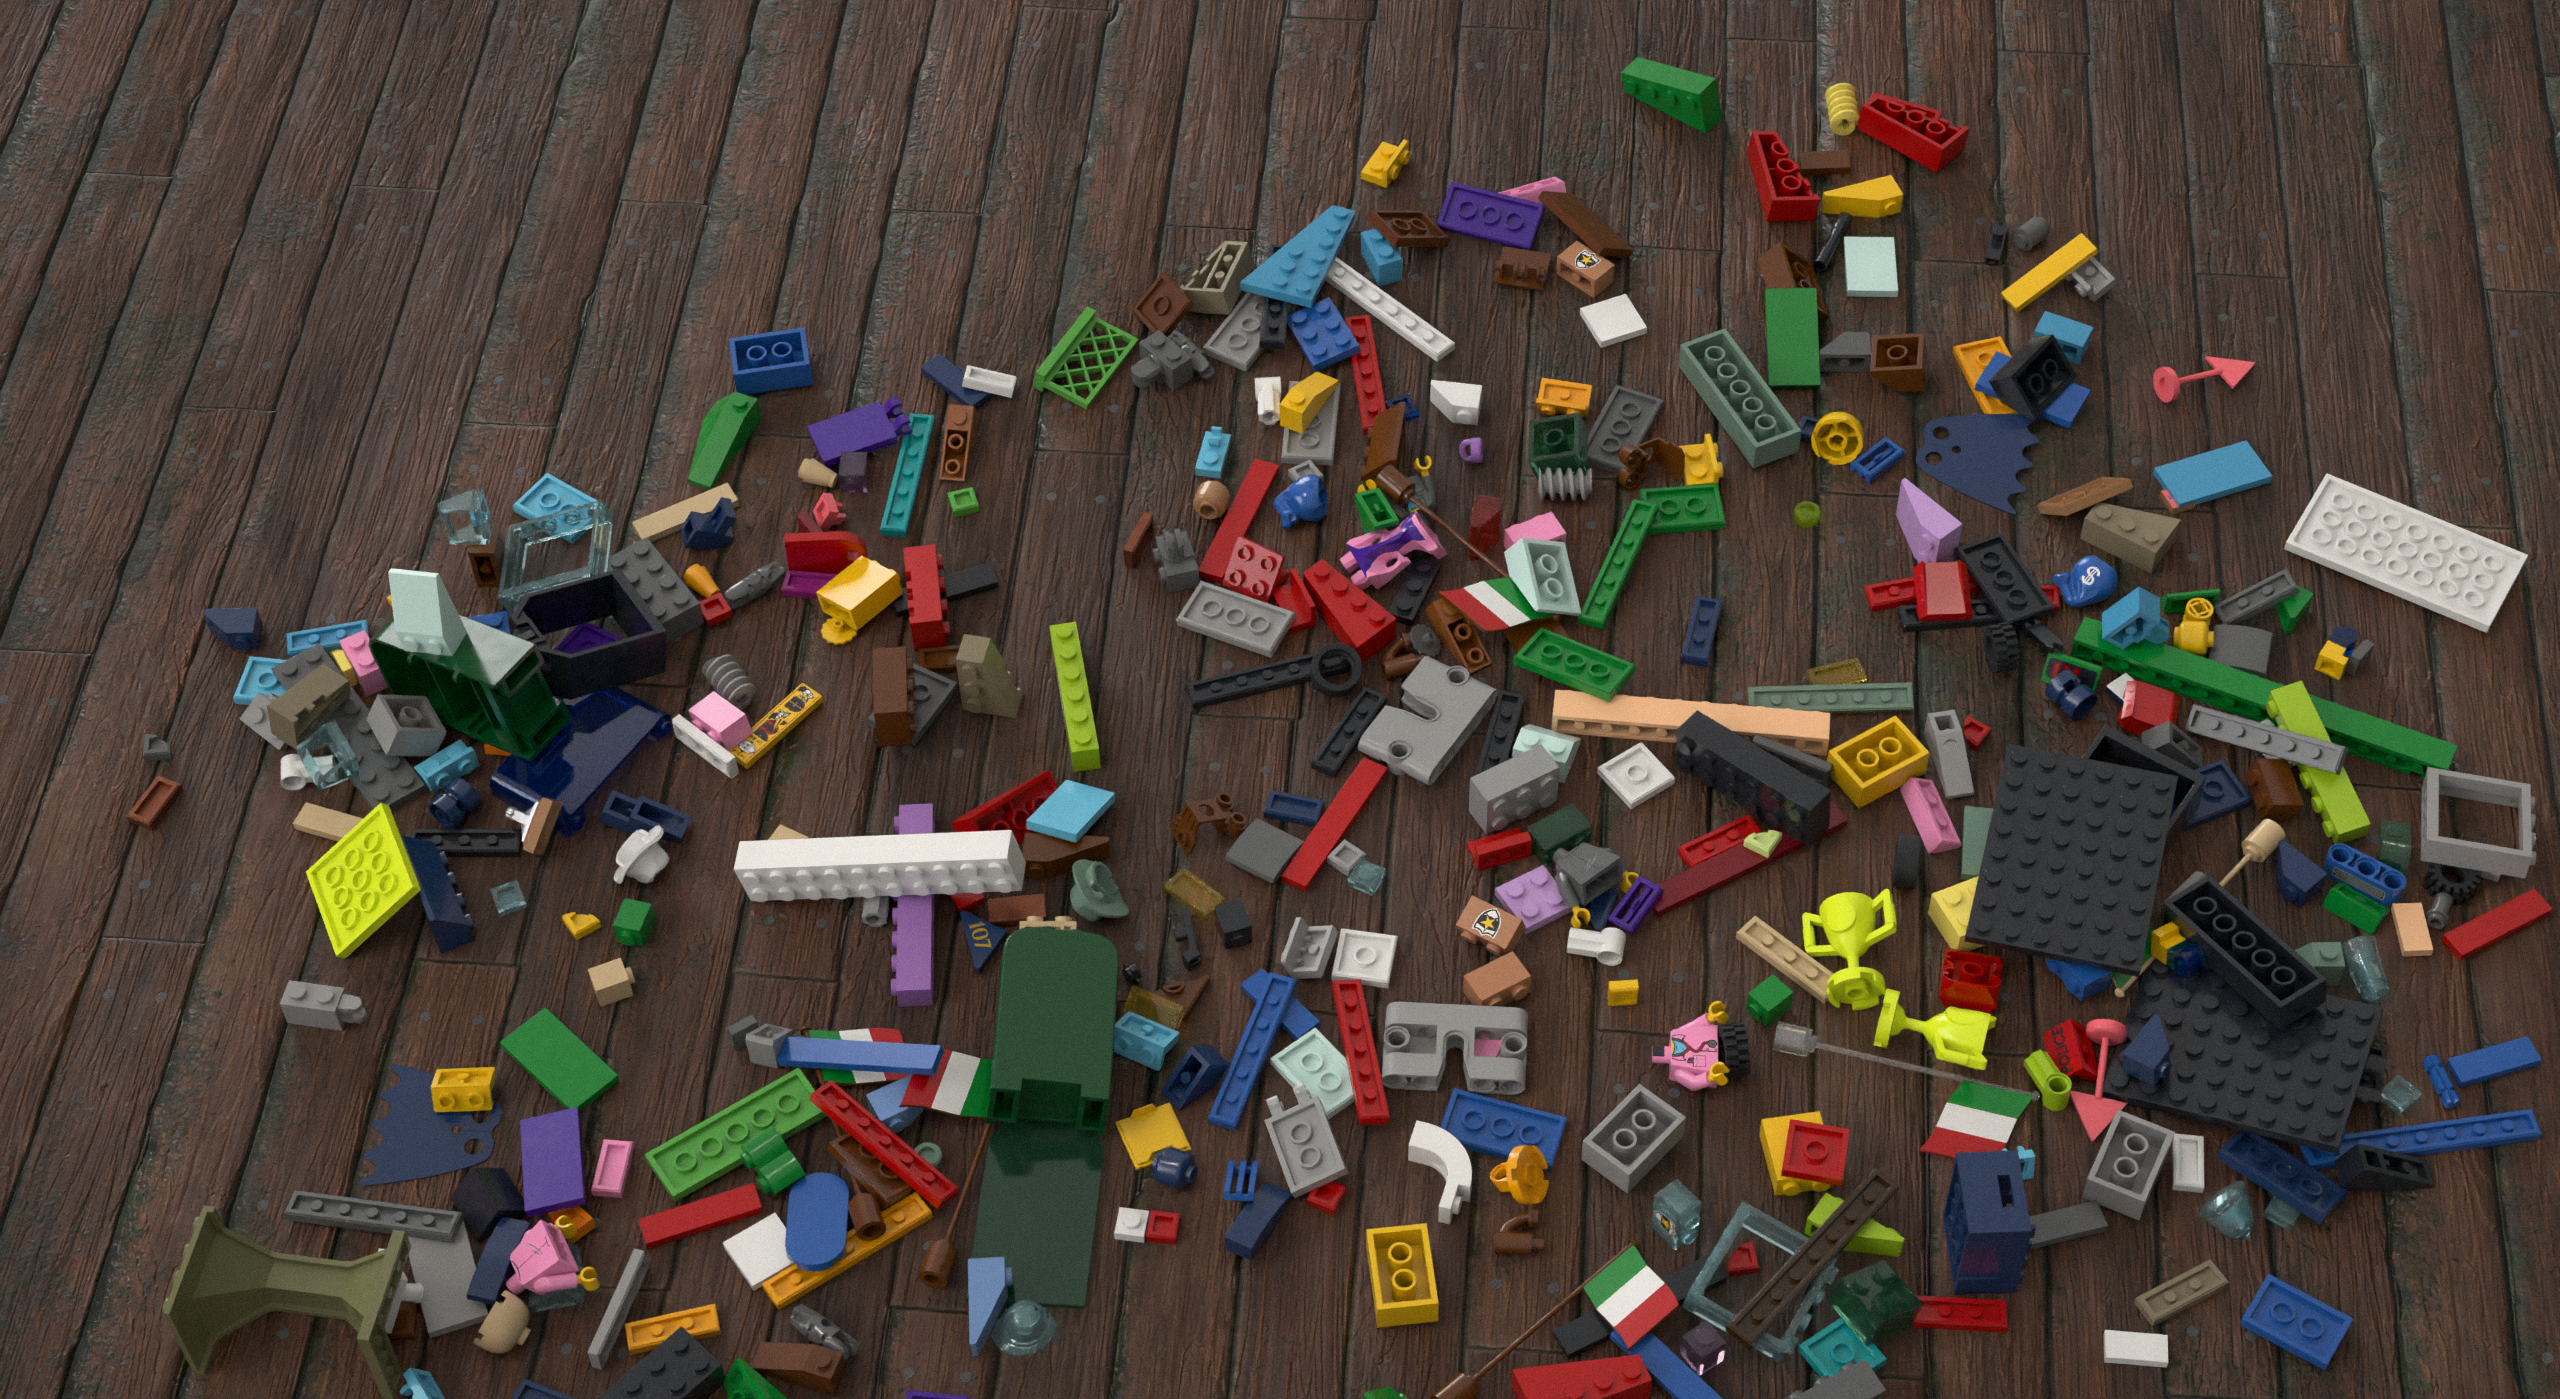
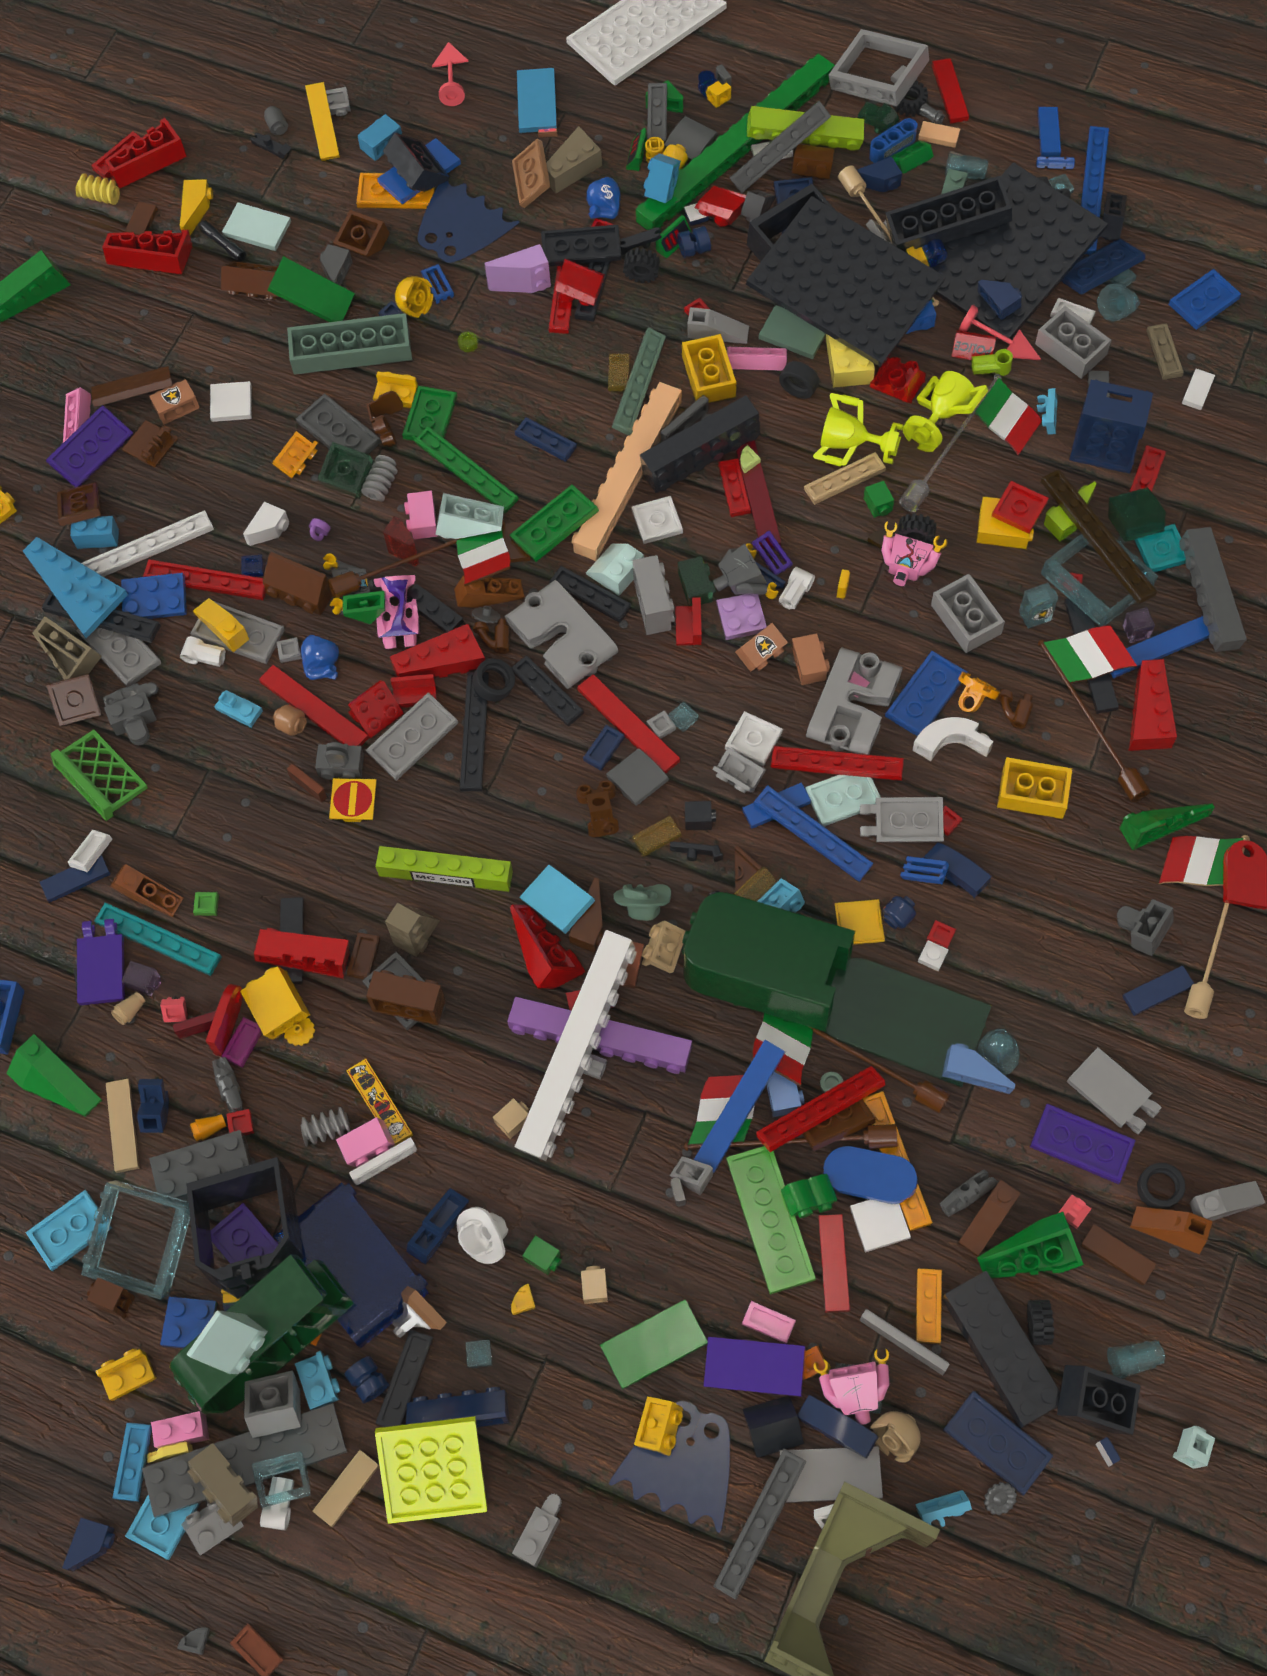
camera: 70 degrees left, 15 degrees up
(474, 504) = (89, 1298): clear light blue tile -> none
(982, 939) = (646, 995): dark blue tile -> none
(1133, 587) = (352, 799): none -> piece
(1194, 1075) = (824, 877): dark blue slope -> none

